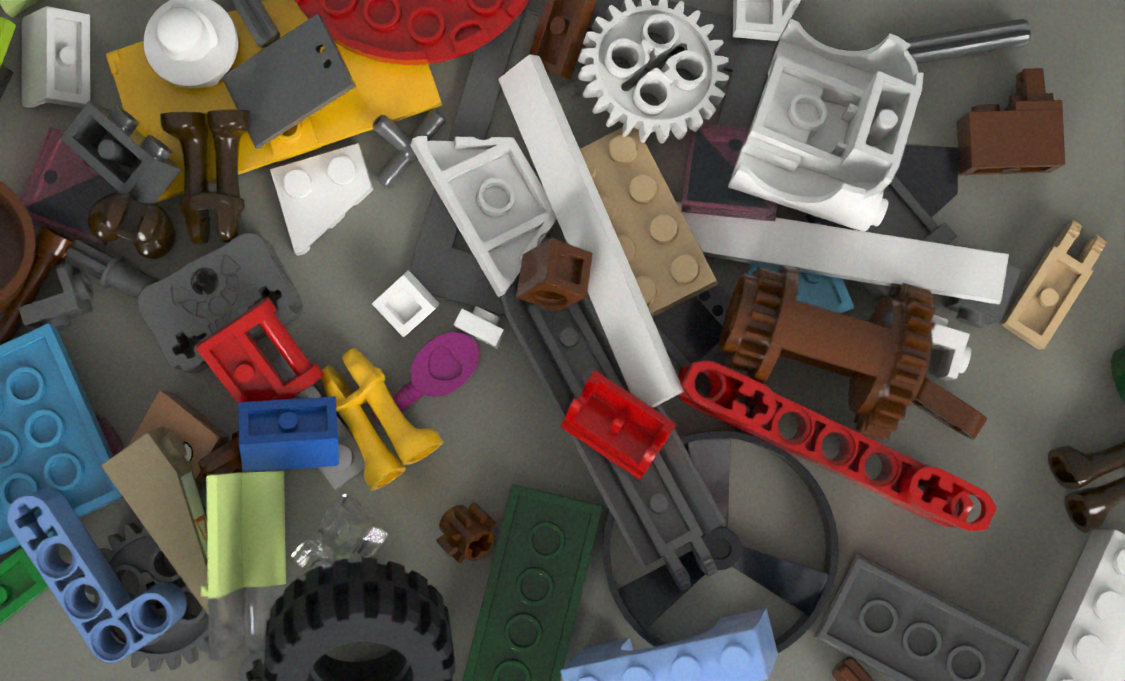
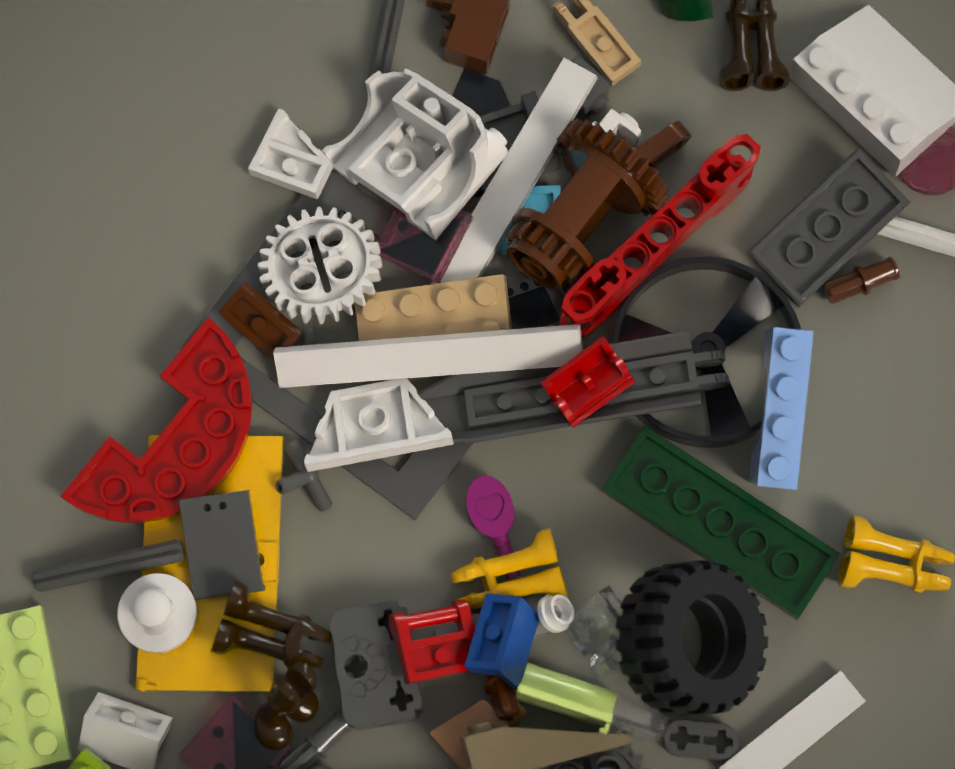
camera: 70 degrees left, 10 degrees down
(121, 153) = (230, 693): dark grey brick -> none
(320, 192) = (315, 558): white wing -> none
(345, 482) = (555, 612): none -> white plate
(406, 303) = (430, 520): white plate -> none
(466, 532) = (627, 536): reddish brown gear -> none
(480, 325) = (469, 468): white plate -> none
(554, 275) = (455, 390): reddish brown brick -> none

